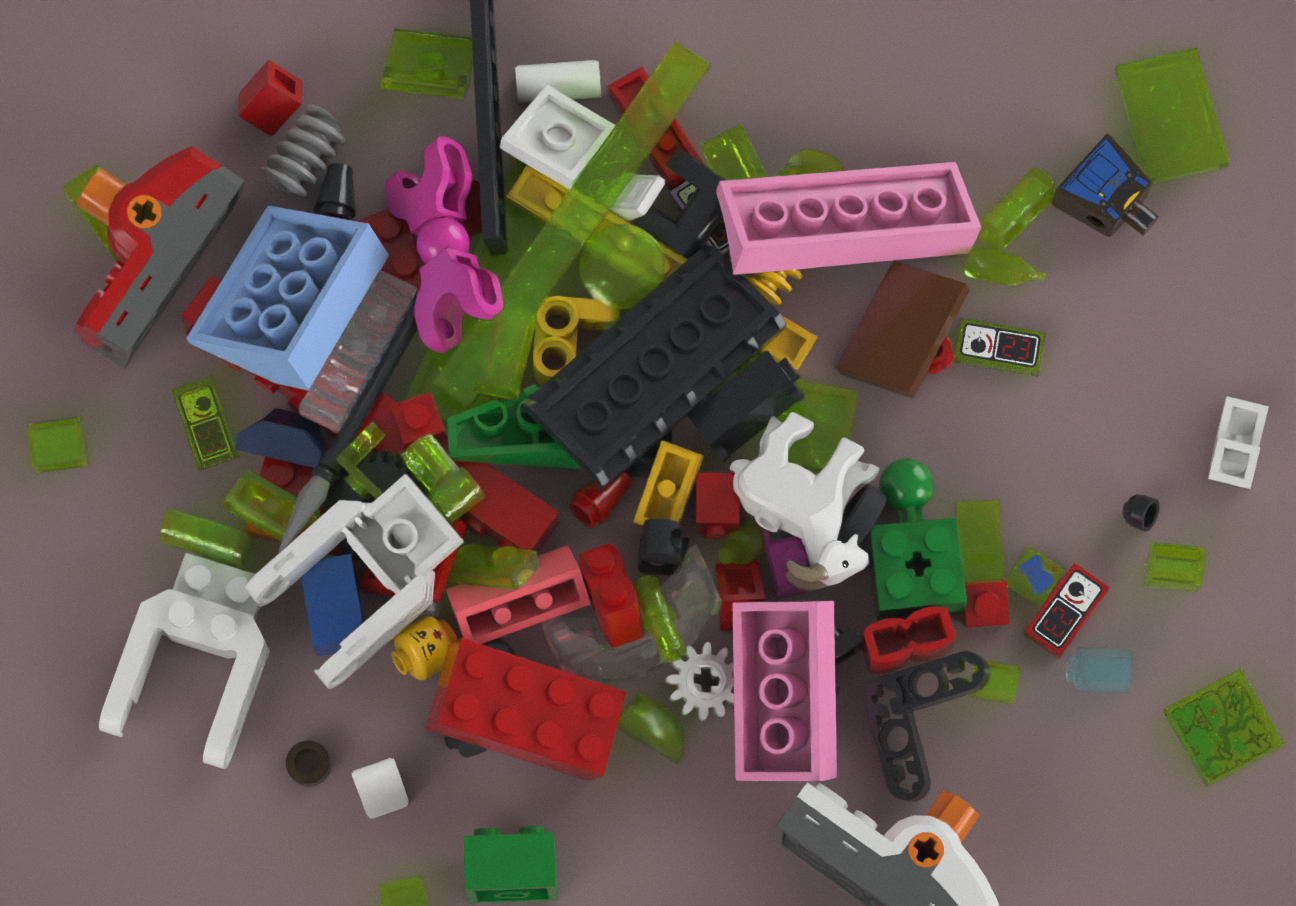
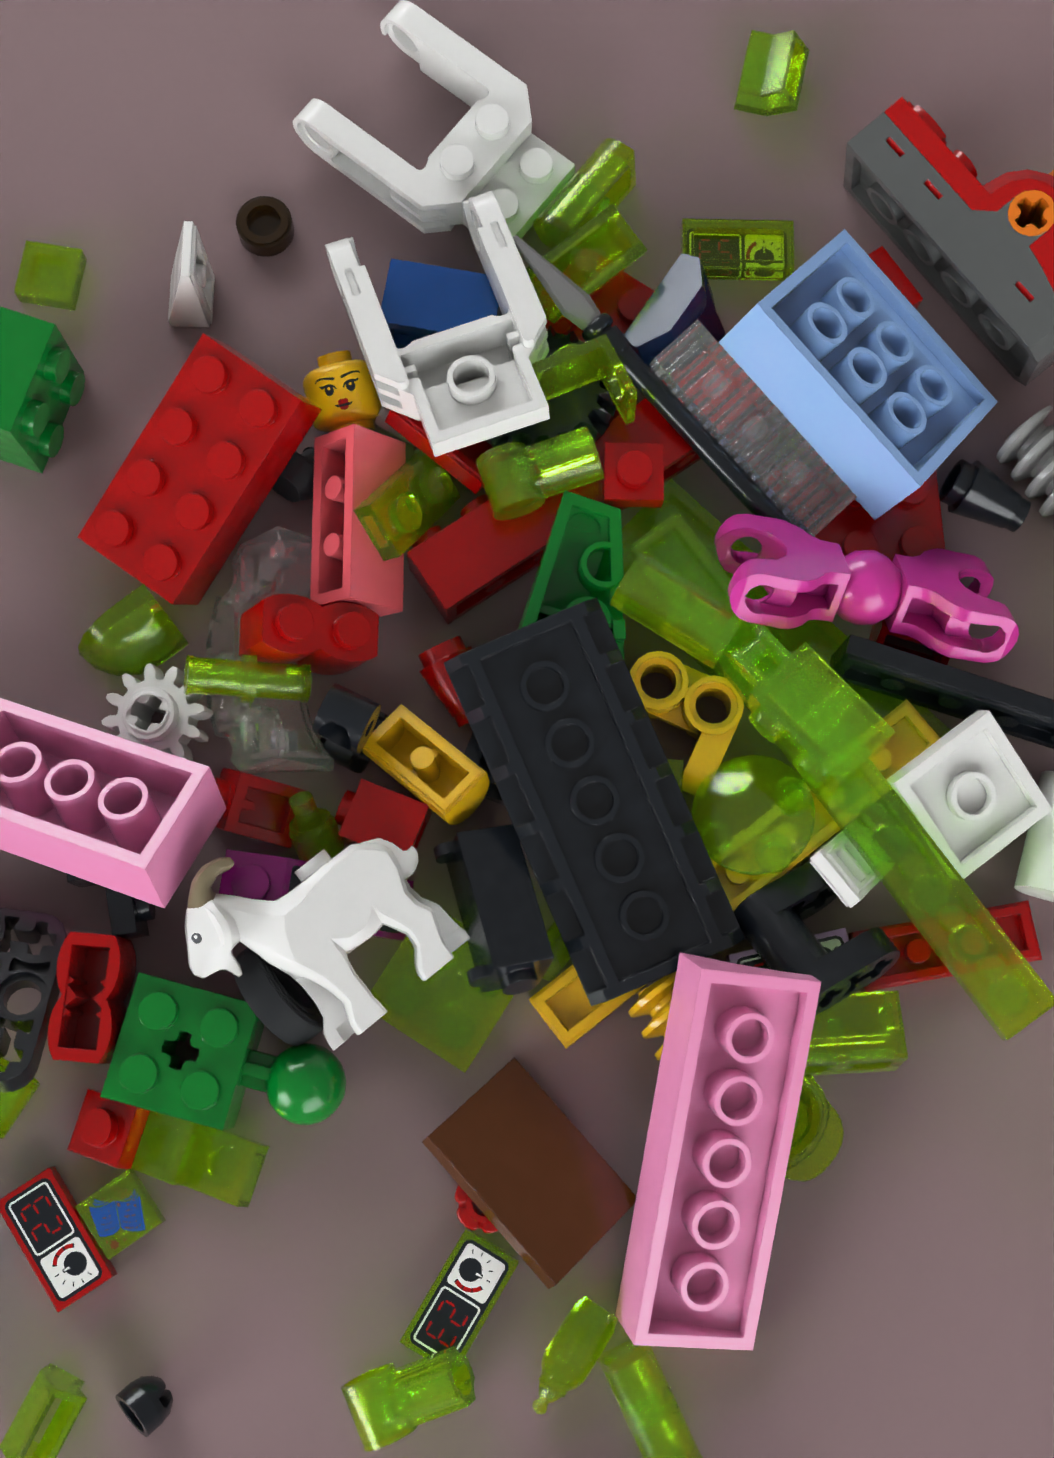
camera: 105 degrees right, 5 degrees up
(547, 244) = (809, 711): none -> clear neon green brick
(1075, 361) = (394, 1401): none -> clear neon green piece

